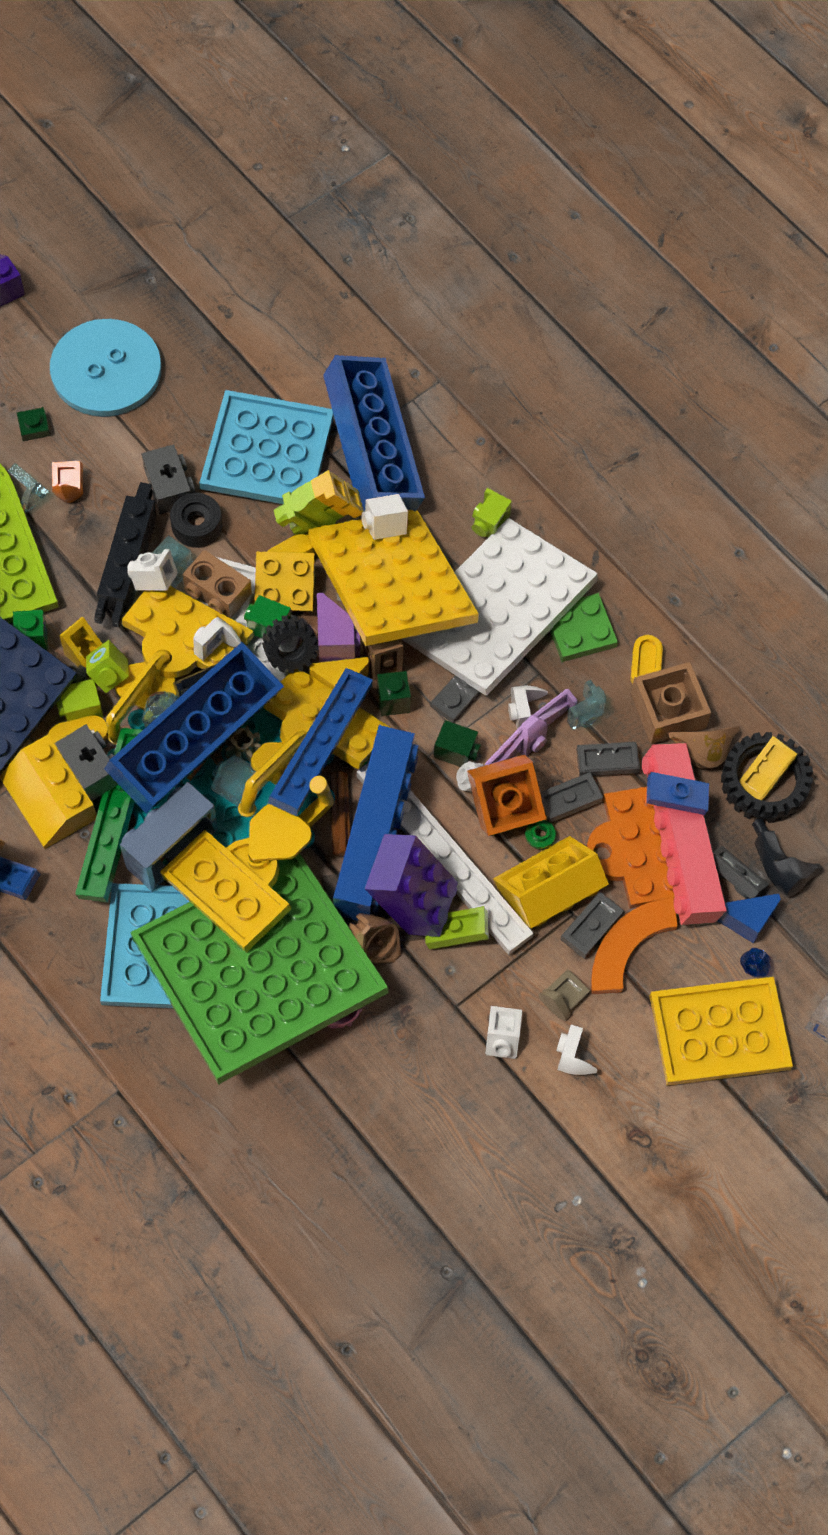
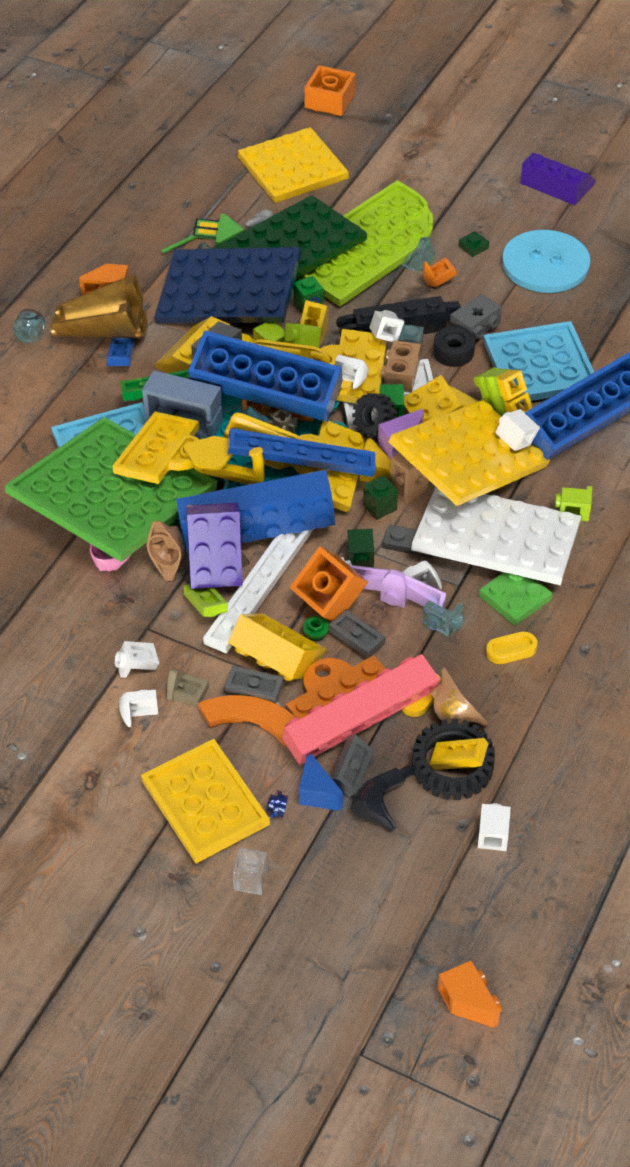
camera: 70 degrees right, 15 degrees down
(608, 758) = (404, 643): dark grey plate -> none
(670, 702) = (478, 665): medium nougat brick -> none
(677, 793) = (385, 682): blue plate -> none

